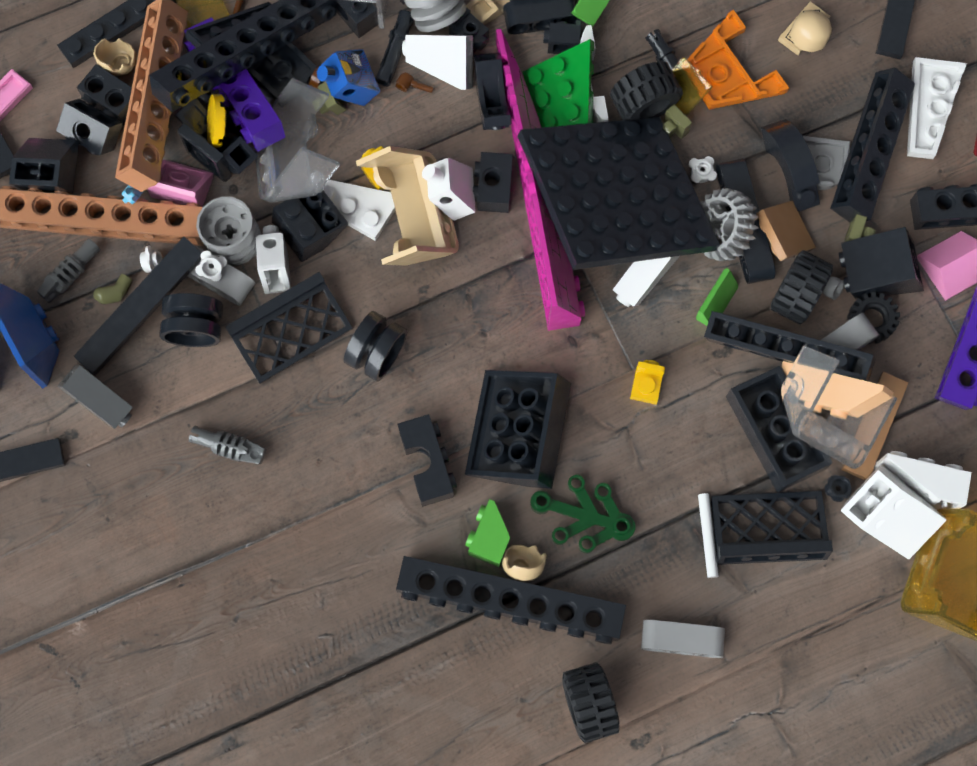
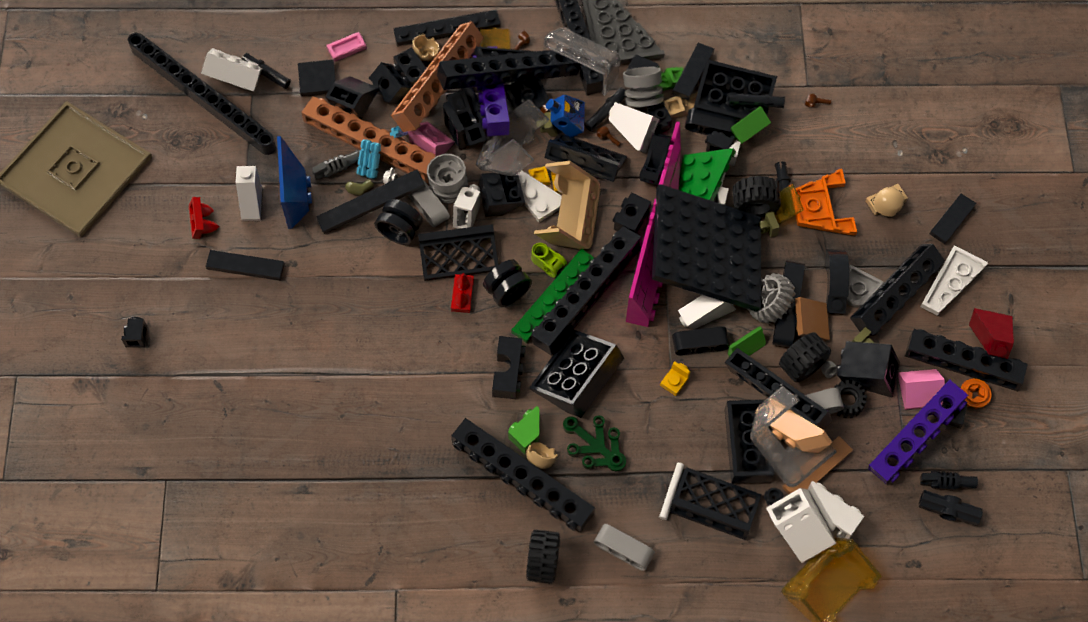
camera: 25 degrees right, 10 degrees down
(96, 397) = (318, 245): dark grey slope -> none
(102, 247) = (363, 157): none -> medium azure axle
(116, 245) = (373, 160): none -> medium azure axle
(211, 273) = (421, 193): white plate -> none
(216, 120) = (469, 107): yellow tile -> none
(229, 445) = (387, 308): dark grey hinge -> none
(319, 381) = (462, 293): none -> red tile
(349, 174) = (540, 174): none -> yellow tile
(408, 133) = (587, 156): none -> black fence
(413, 289) = (550, 261): none -> lime piece
(440, 335) = (550, 296): none -> green plate
(451, 187) = (601, 205): white torso -> none
(465, 401) = (586, 299): none -> black brick
(657, 317) = (700, 341): none -> black beam
(697, 175) = (774, 266): white plate -> none

